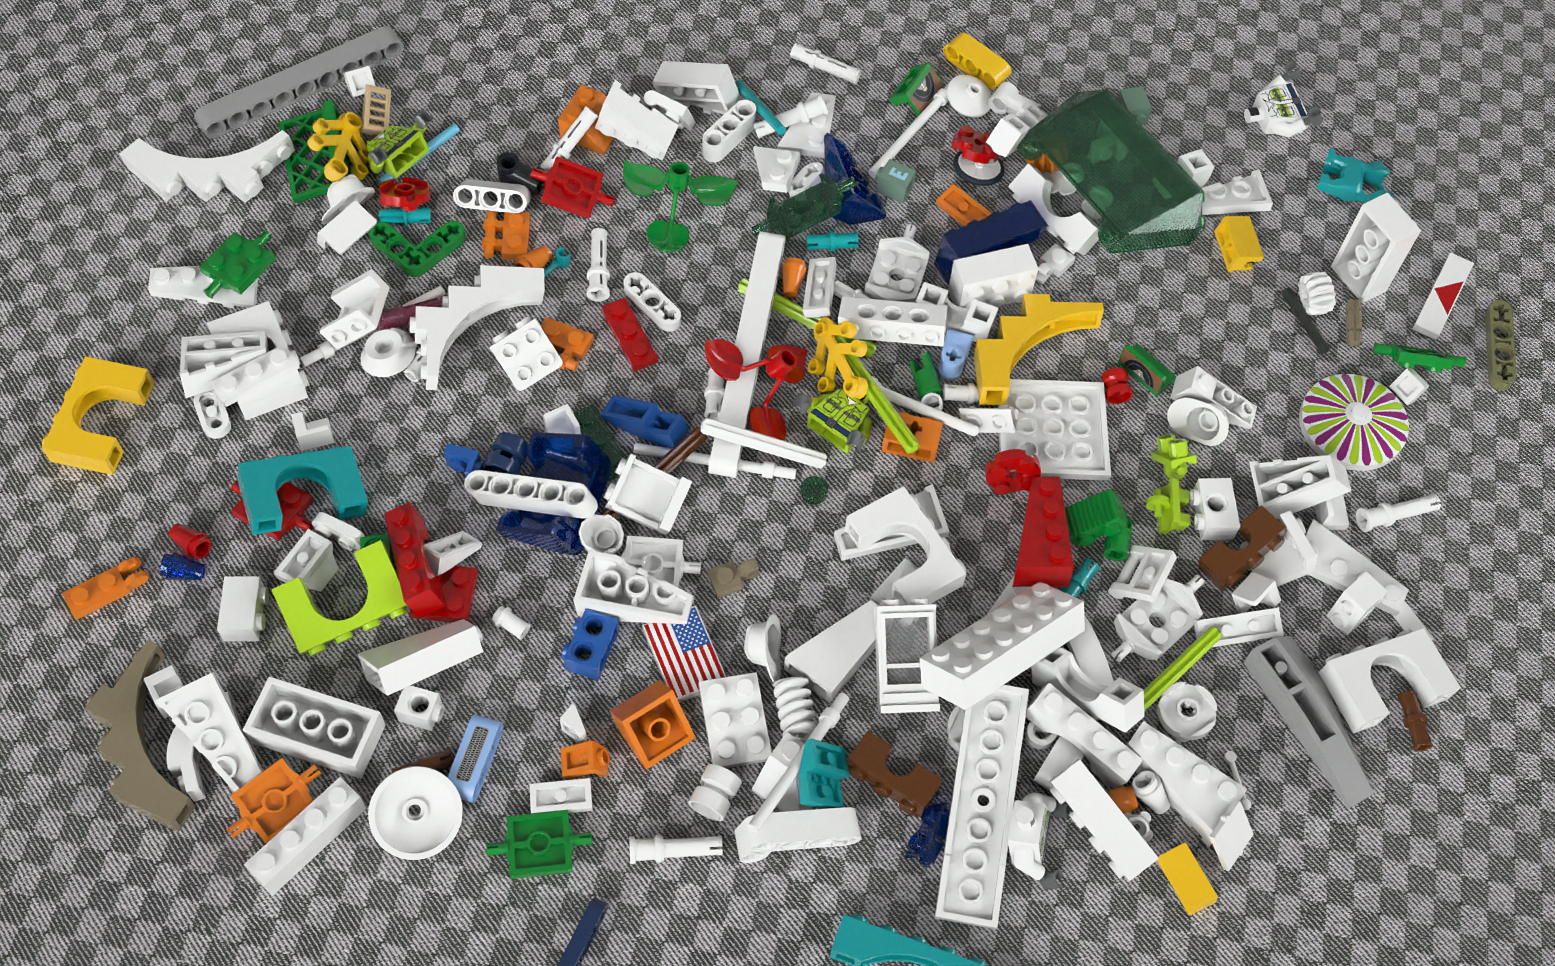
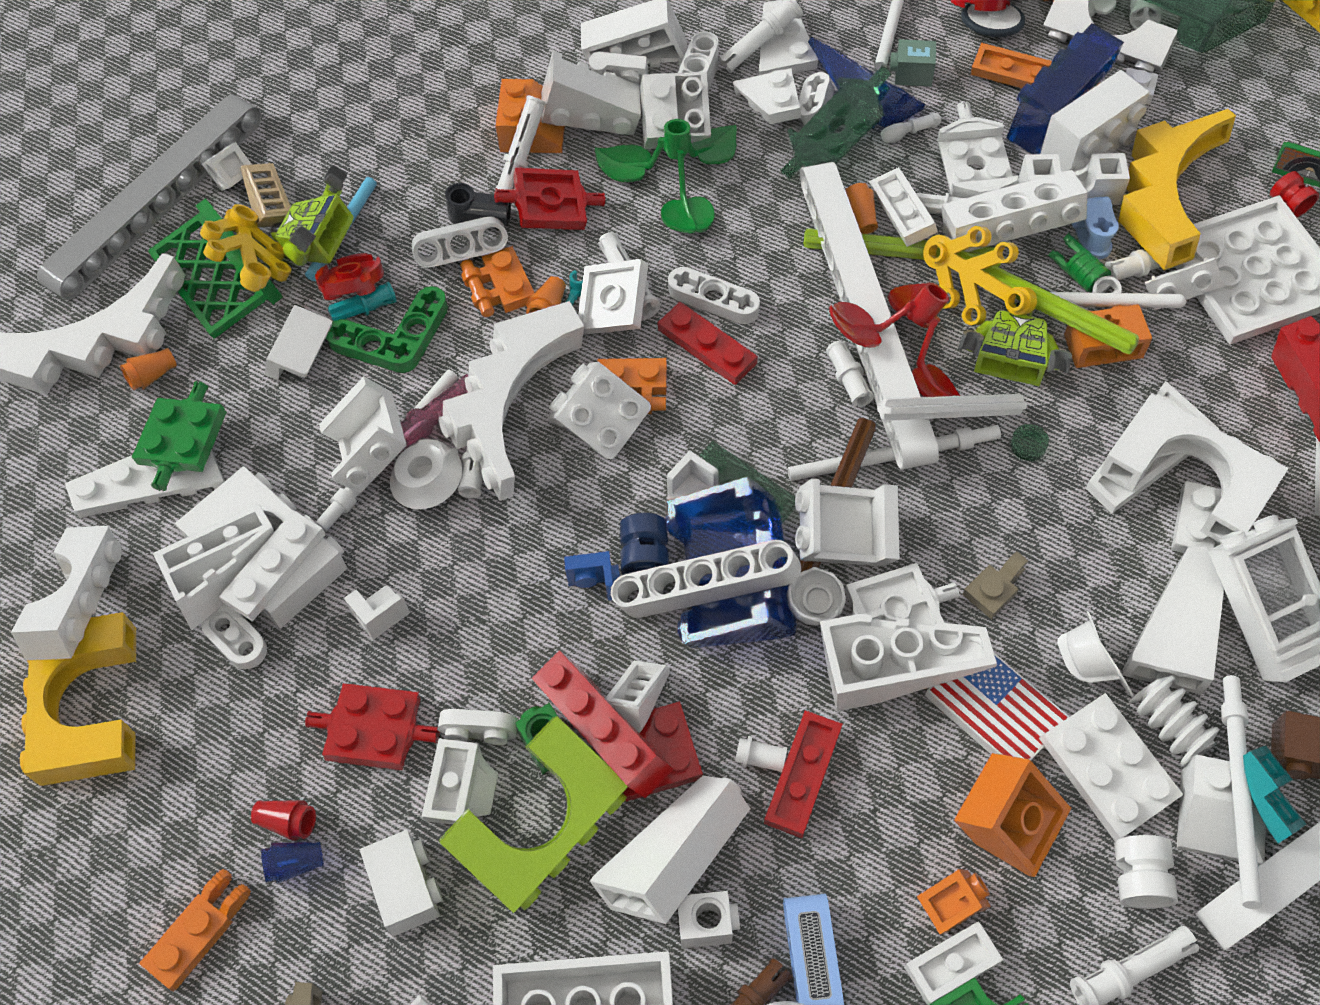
camera: 15 degrees left, 0 degrees up
(101, 359) = (58, 622): none -> white arch
(239, 208) = (147, 368): none -> orange cone
(331, 468) = (429, 647): teal arch -> none
(343, 193) = (275, 303): white piece -> none
(531, 645) = (803, 774): none -> red plate
(572, 724) = (918, 858): white slope -> none
(575, 276) = (613, 296): none -> white plate
(596, 645) = (886, 741): blue brick -> none
(645, 421) = (787, 436): blue slope -> none
(694, 147) = (674, 97): none -> white slope
(761, 108) = (726, 37): teal bar -> none
(832, 241) = (882, 152): teal pin -> none
(868, 228) = (897, 131): none -> white piece
(1004, 481) = (1254, 330): red plate -> none

